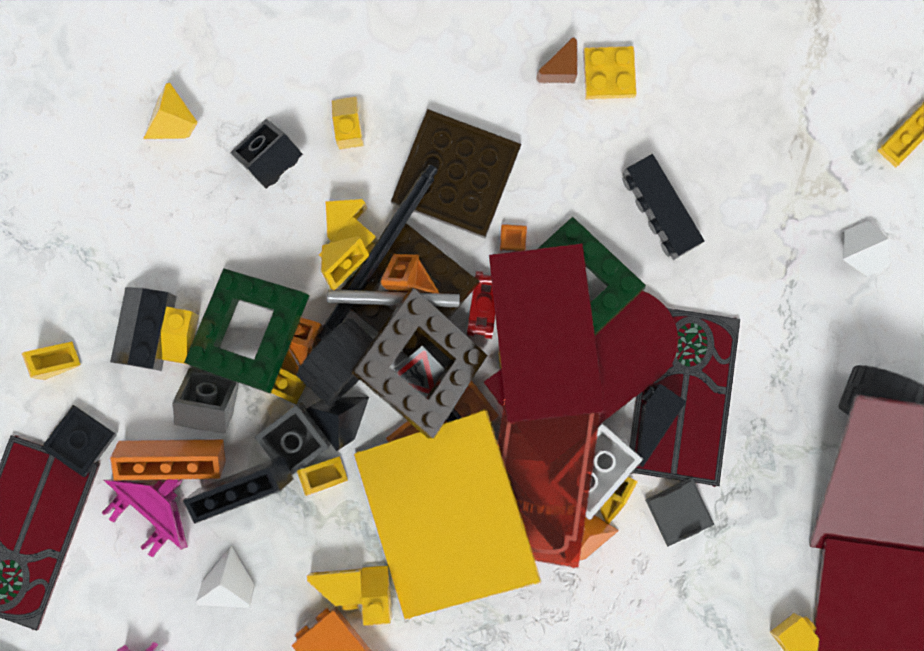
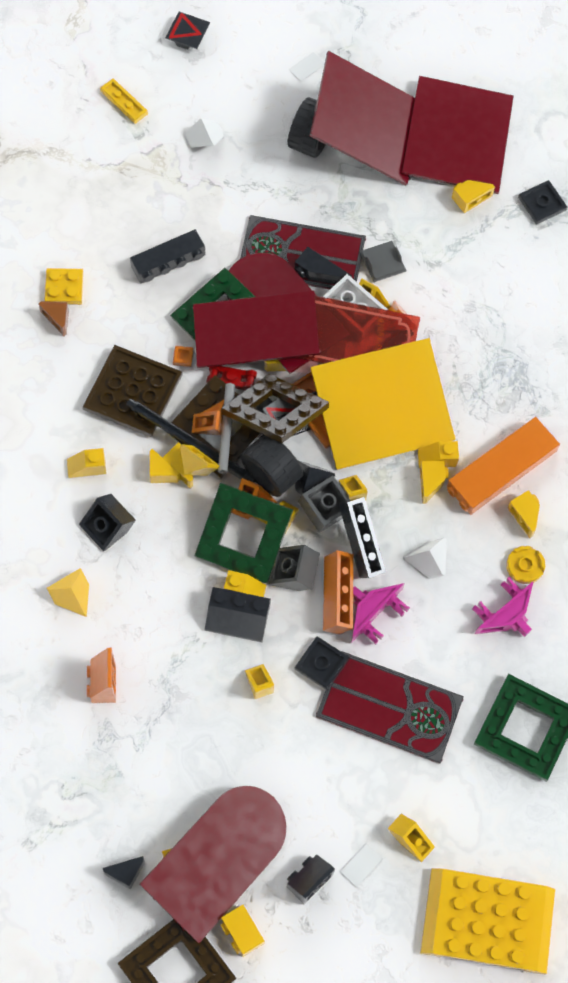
camera: 90 degrees left, 15 degrees down
(46, 162) = (102, 677): none -> orange slope

